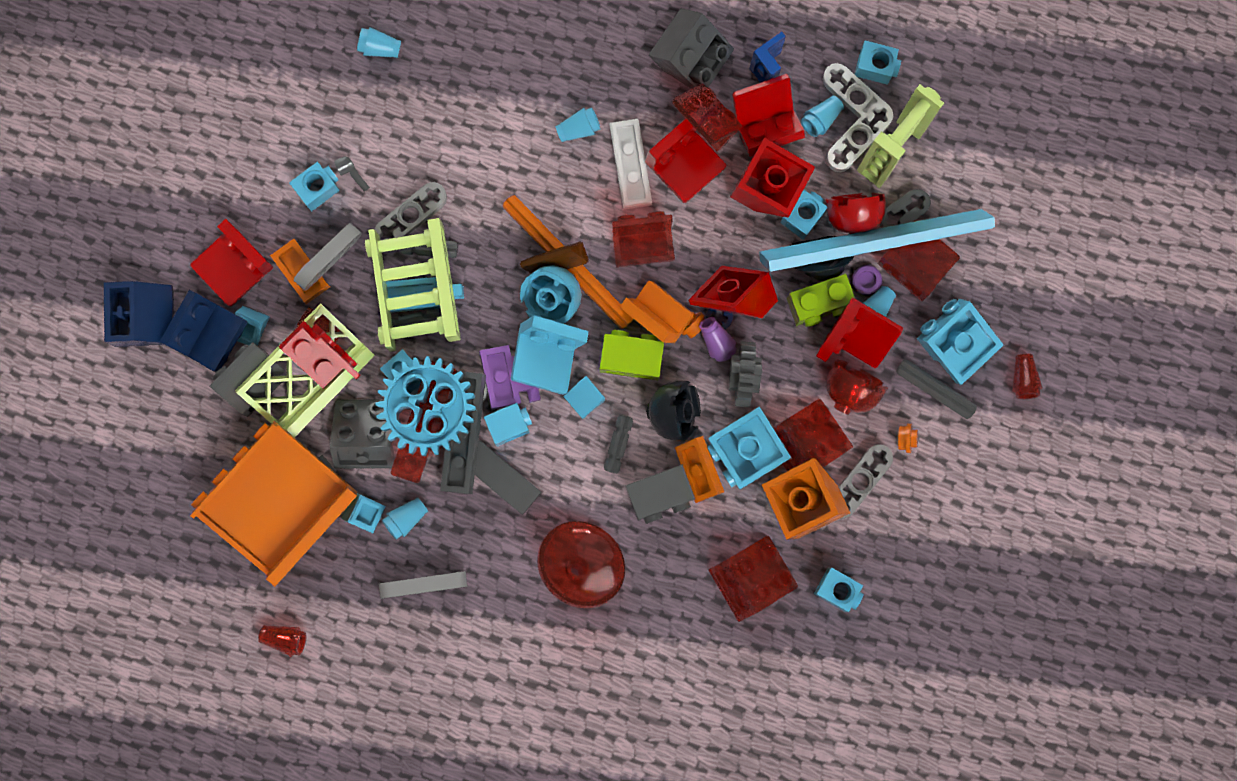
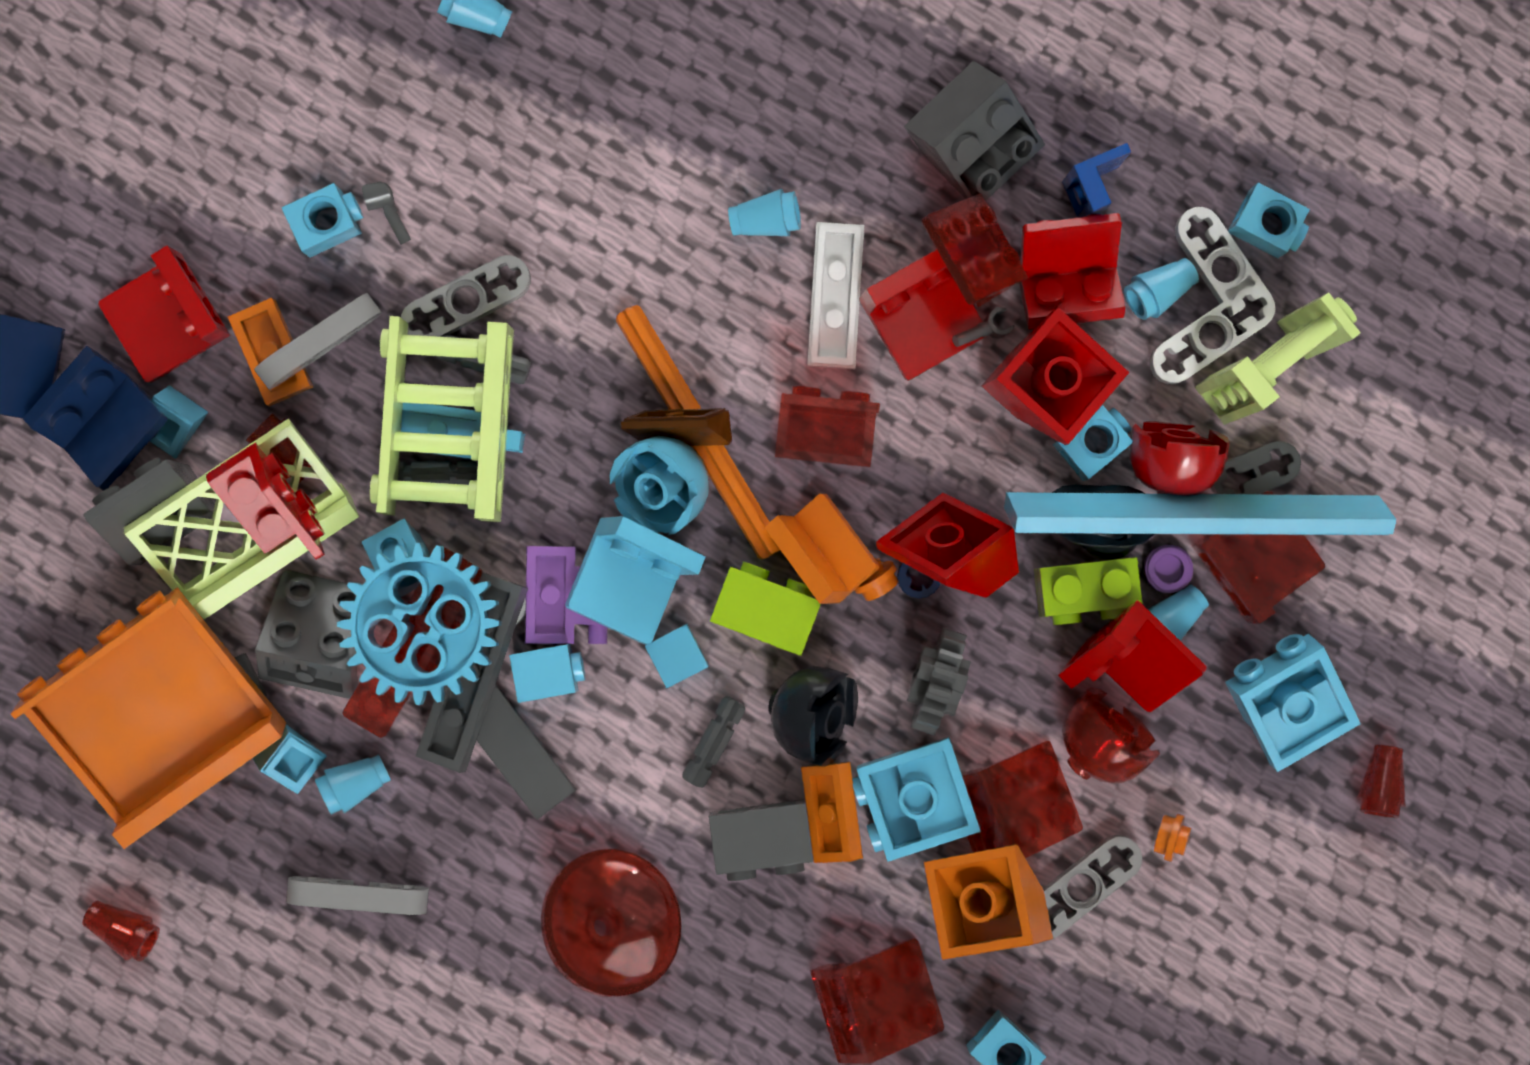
camera: 10 degrees right, 5 degrees up
(717, 340) = (908, 615): medium lavender cone -> none
(724, 162) = (983, 329): none -> dark grey hand
(936, 389) = (1236, 768): dark grey axle -> none

